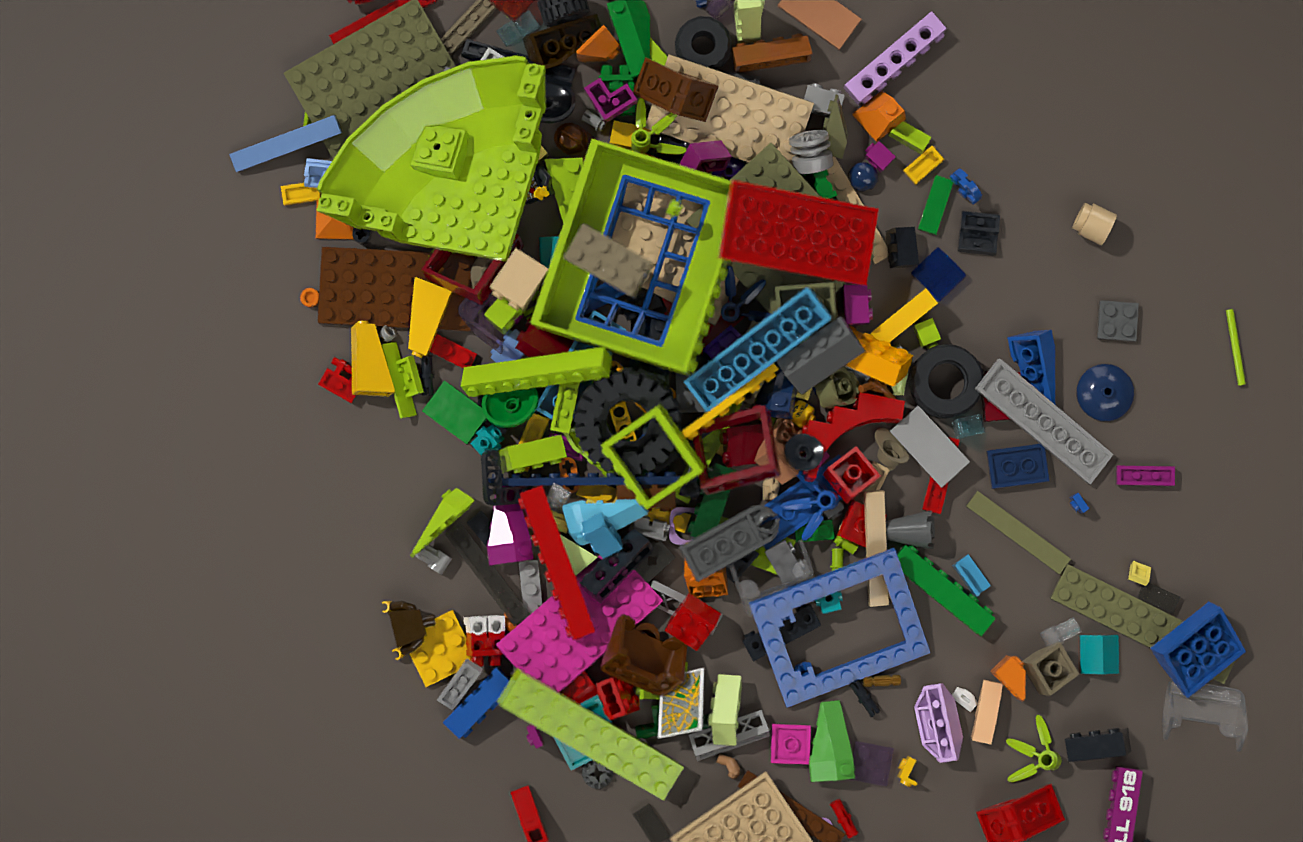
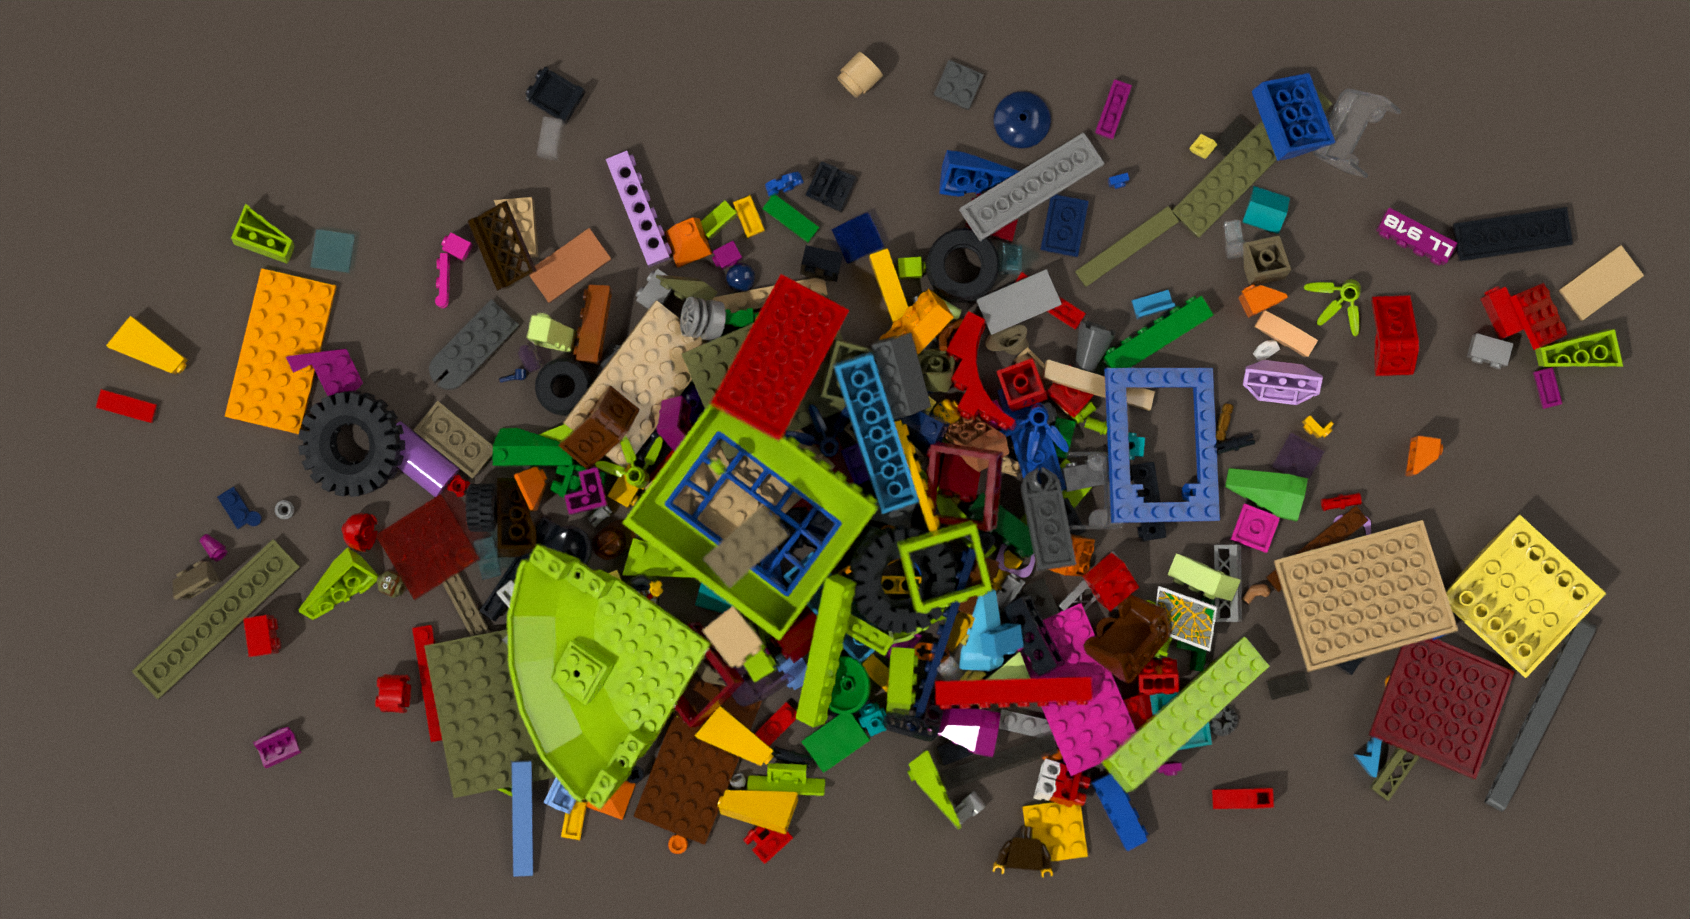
camera: 70 degrees left, 0 degrees up
(459, 684) = (1096, 822): light grey plate -> none
(807, 444) = (982, 415): black dish -> none
(855, 304) = (862, 326): magenta brick -> none
(1098, 744) = (1351, 240): black wedge -> none

